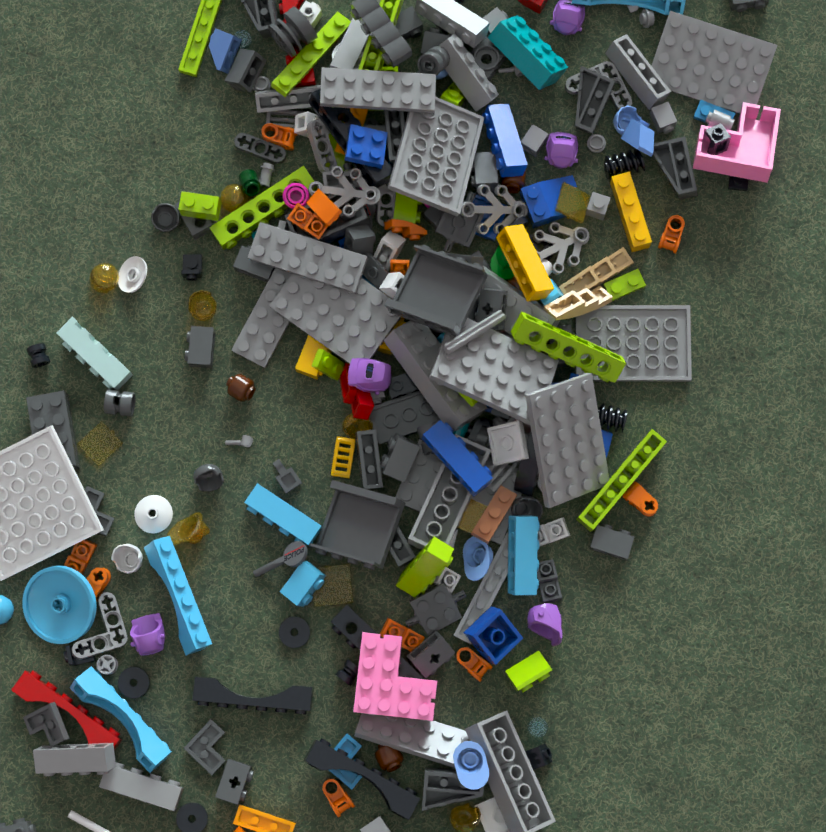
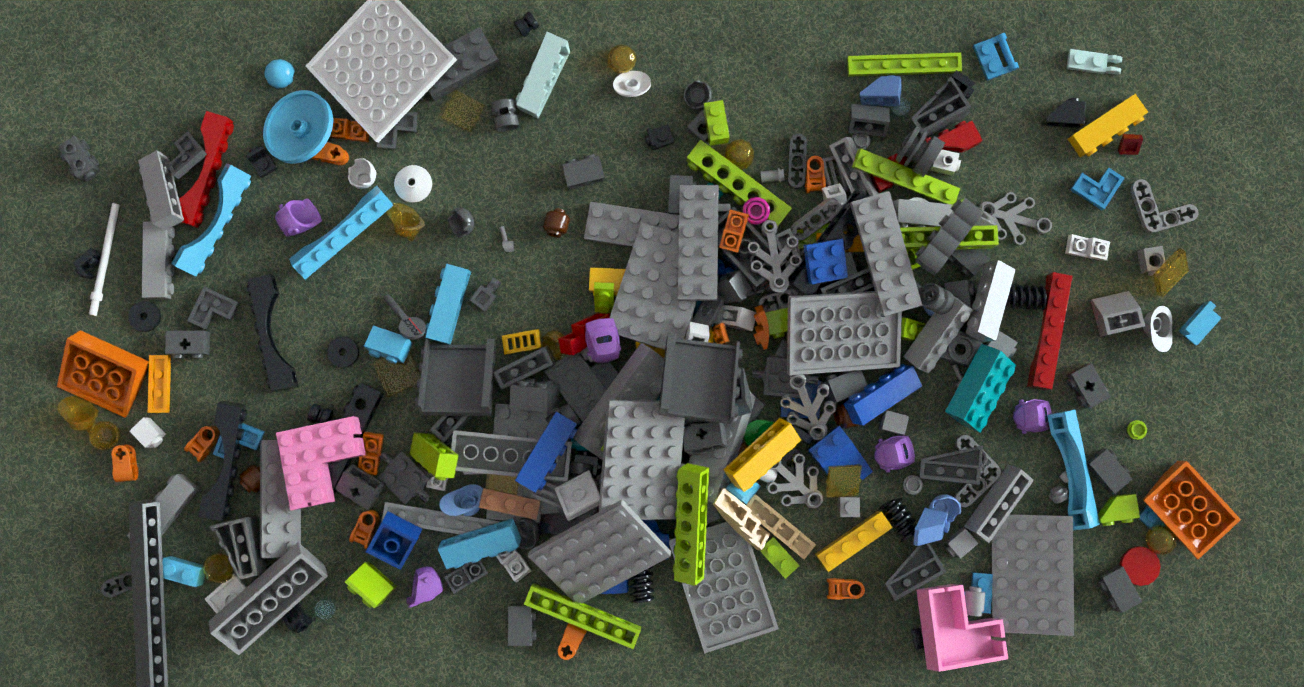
camera: 70 degrees right, 5 degrees up
(104, 664) = (256, 187): light grey wheel -> none
(107, 637) = (284, 181): light grey beam -> none
(142, 686) = (245, 214): black piece -> none
(196, 303) = (619, 156): clear yellow hair -> none
(249, 182) = (758, 162): dark green brick -> none
(324, 207) = (750, 241): orange slope -> none
(471, 765) = (259, 560): light blue piece -> none
(474, 332) = (669, 428): light grey axle -> none
(718, 138) = (953, 607): bracket -> none

